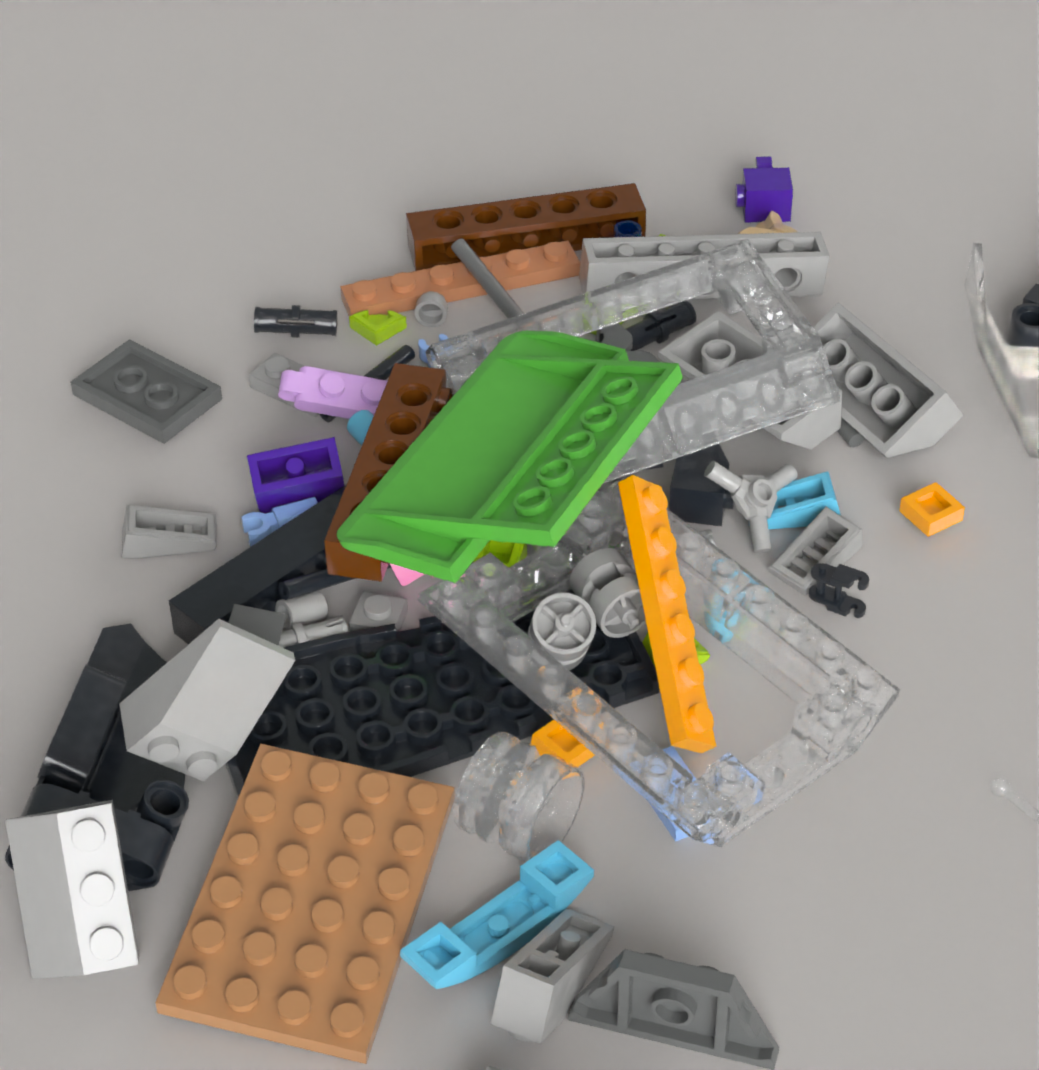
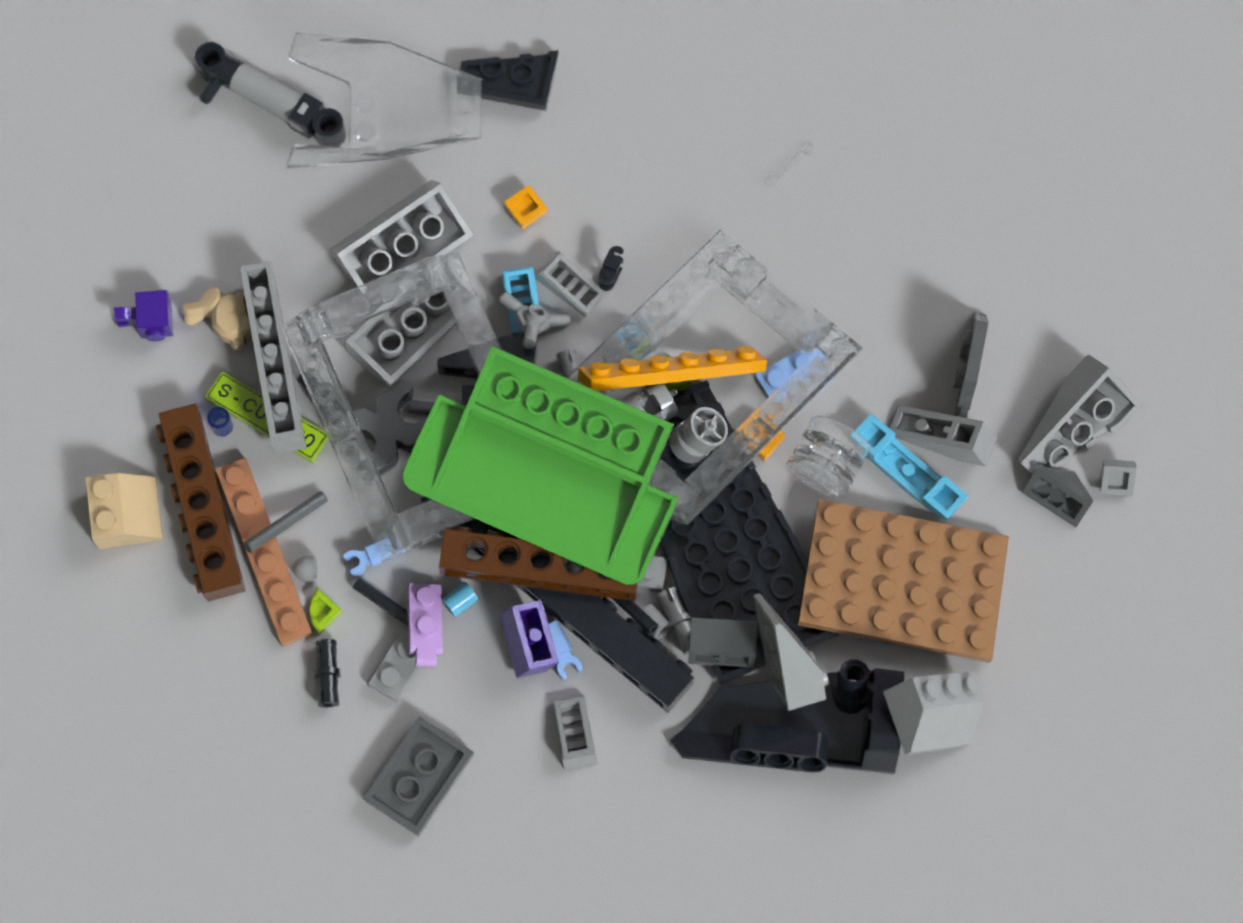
camera: 95 degrees left, 30 degrees up
(522, 163) = (123, 509): none -> tan slope

